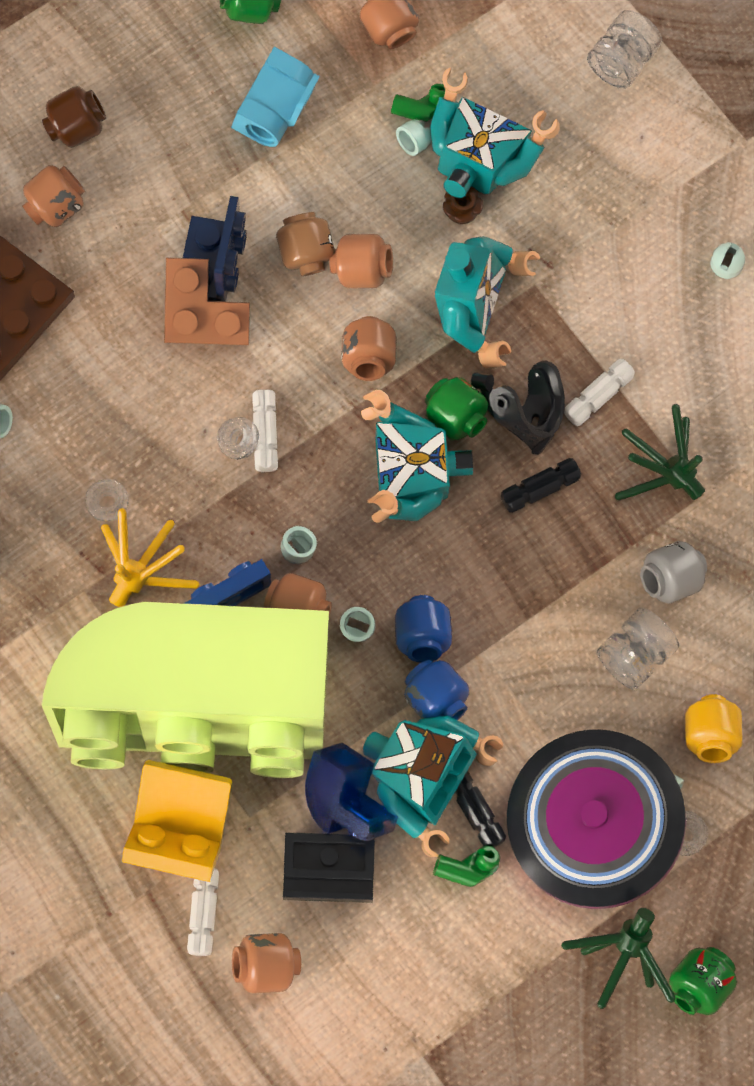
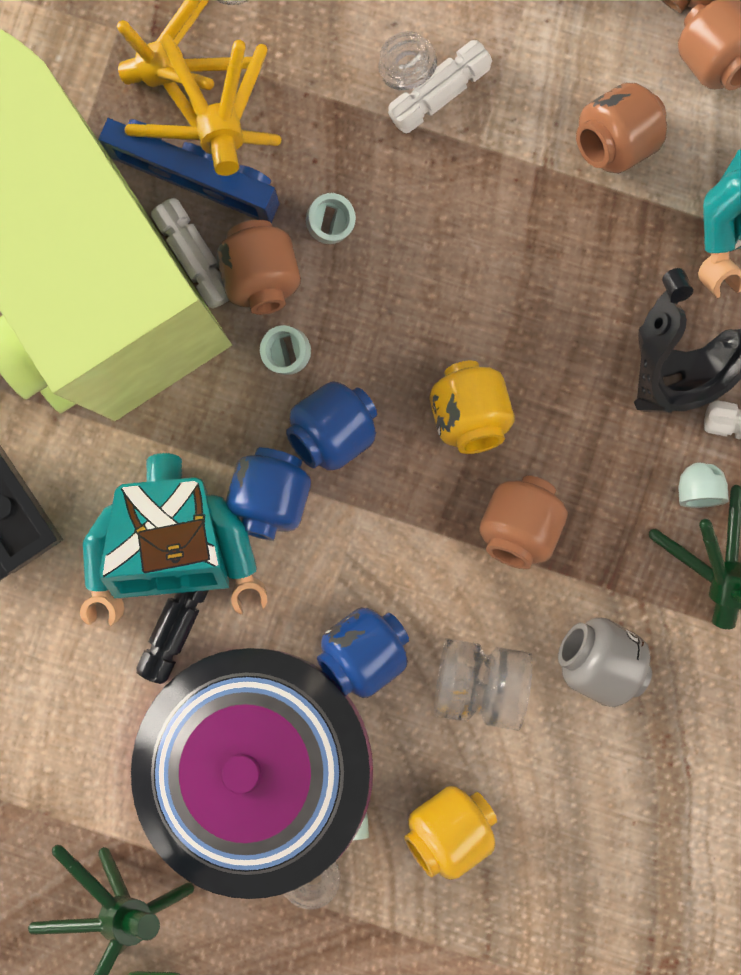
camera: 65 degrees right, 15 degrees up
(205, 563) = (217, 123): none -> yellow plant
(338, 796) = (65, 474): clear blue brick -> none
(411, 461) = (516, 272): torso -> none
(456, 408) = (622, 278): green head -> none
(470, 542) = (471, 407): none -> yellow head
(470, 870) = (99, 668): green arm -> none
(540, 485) = (602, 438): black axle -> none
(559, 561) = (523, 522): none -> nougat head
(571, 703) = (364, 652): none -> blue head
(610, 449) = (702, 486): none -> light aqua hinge

